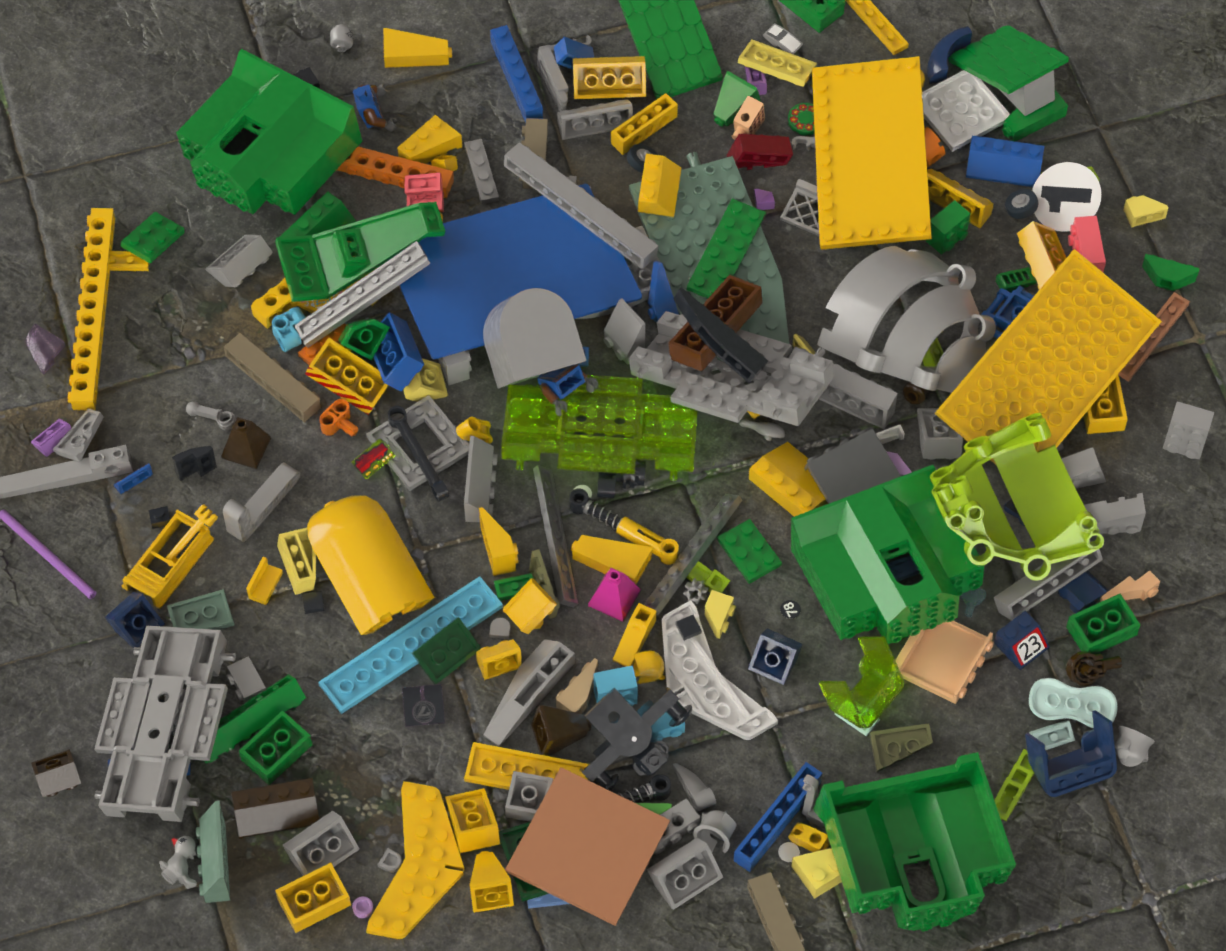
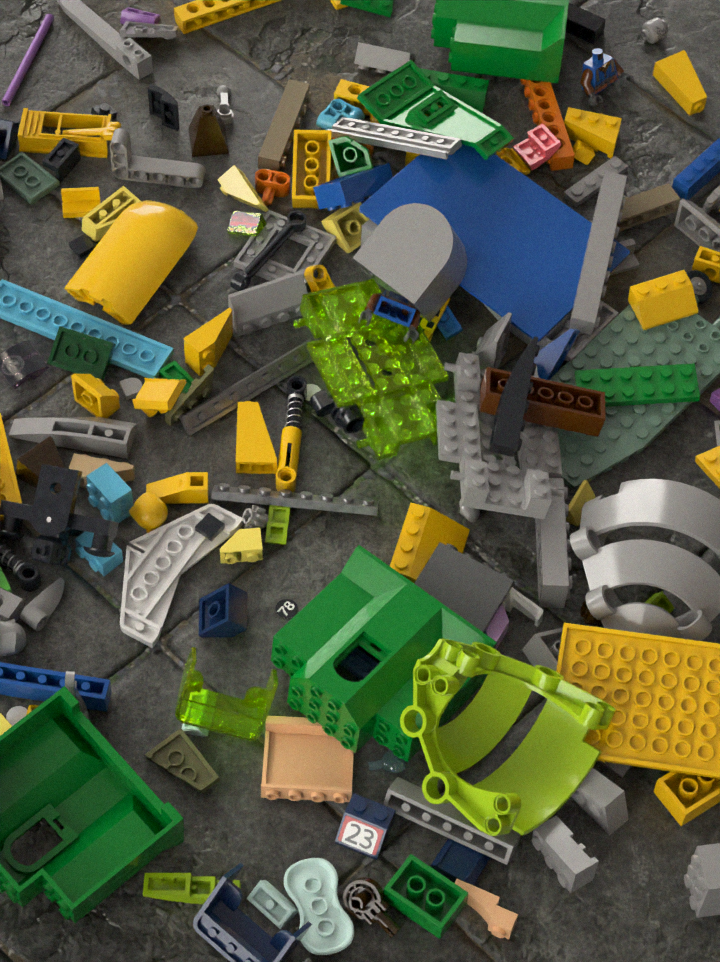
camera: 60 degrees right, 5 degrees down
(133, 478) = (130, 81): blue slope -> none
(202, 573) = (63, 158): none -> black panel
(325, 445) = (239, 187): none -> light yellow slope
(615, 595) = (216, 454): dark pink slope -> none
(749, 551) = (328, 547): green plate -> none

